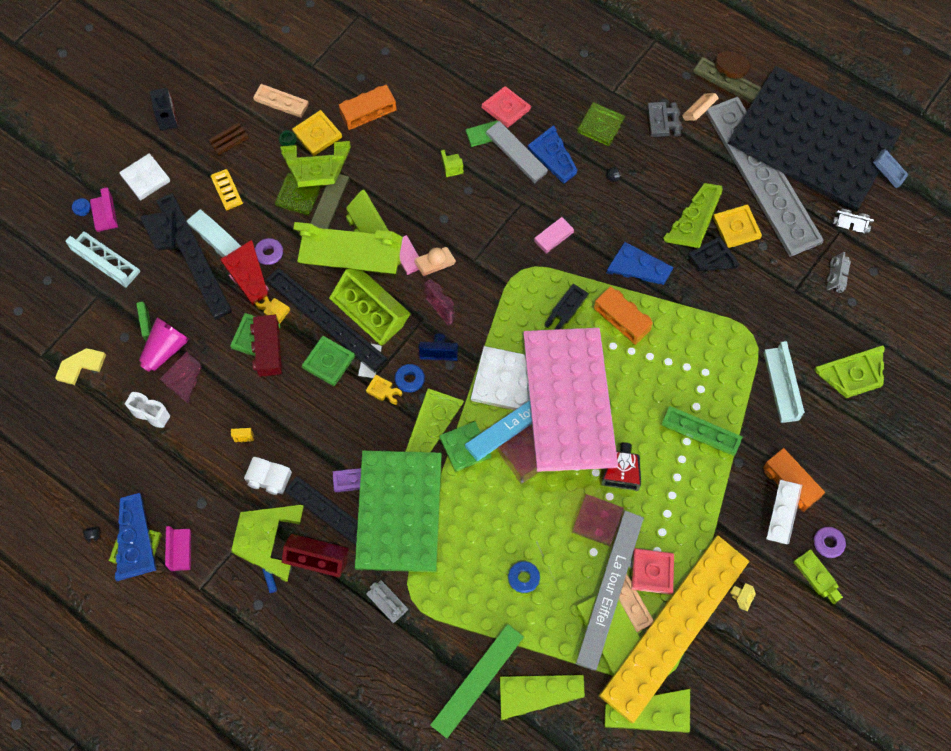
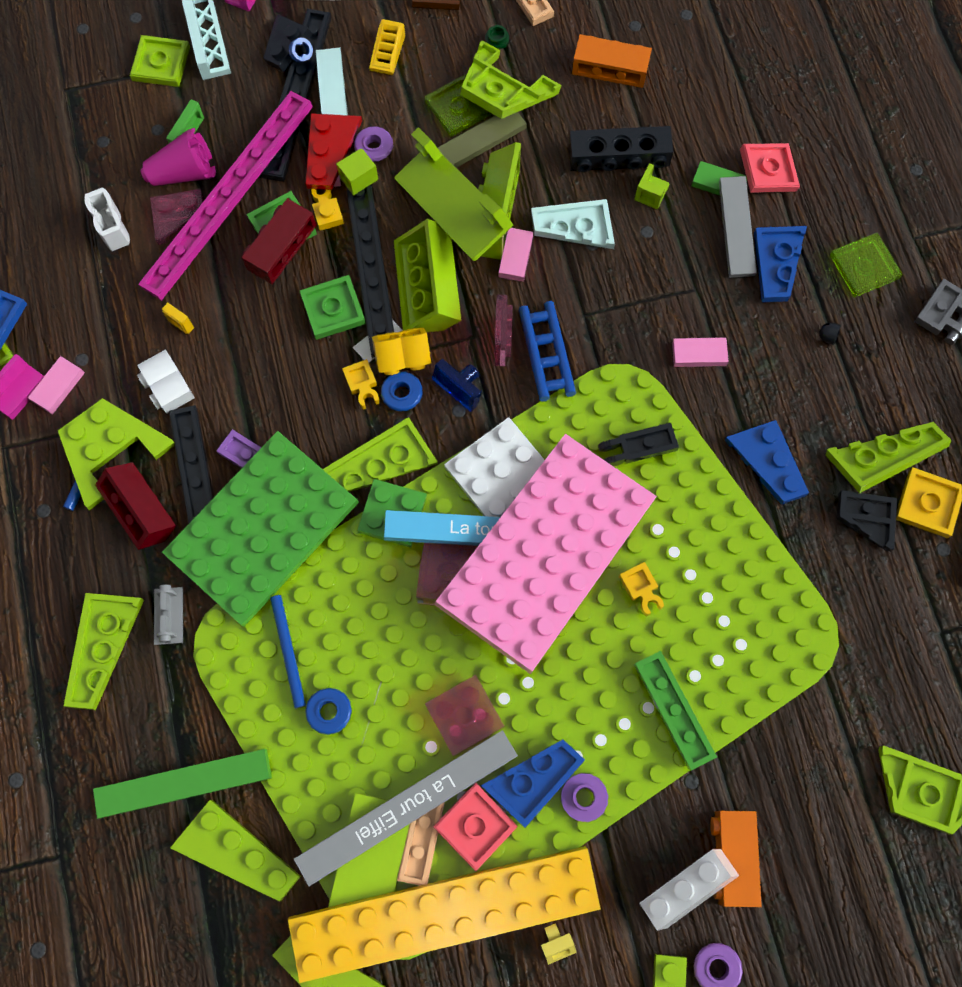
camera: 40 degrees right, 5 degrees up
(71, 367) = (81, 121): light yellow tile -> none
(89, 295) = (160, 61): none -> lime tile
(174, 231) = (304, 57): none -> bush
(200, 528) = (56, 385): none -> bright pink tile
(208, 344) = (225, 195): none -> dark pink plate
(276, 273) = (357, 171): none -> lime panel
(317, 133) = (533, 52): yellow plate -> none
(361, 646) = (99, 642): none -> lime wing
(392, 354) = (401, 350): none -> yellow brick
(418, 145) = (630, 140): none -> black brick
(425, 213) = (575, 222): none -> light aqua wing
(434, 260) = (539, 282): light nougat tile -> none
(472, 305) = (538, 363): none -> blue bar
(473, 564) = (288, 652): none -> blue bar
(623, 315) = (698, 503): orange brick -> none
(627, 473) = (545, 683): torso -> none
(630, 380) = (640, 584): none -> yellow plate
(663, 524) = (534, 782): none -> blue wing
(694, 521) = (572, 807): none -> medium lavender piece
(784, 383) = (826, 733): light aqua fence -> none

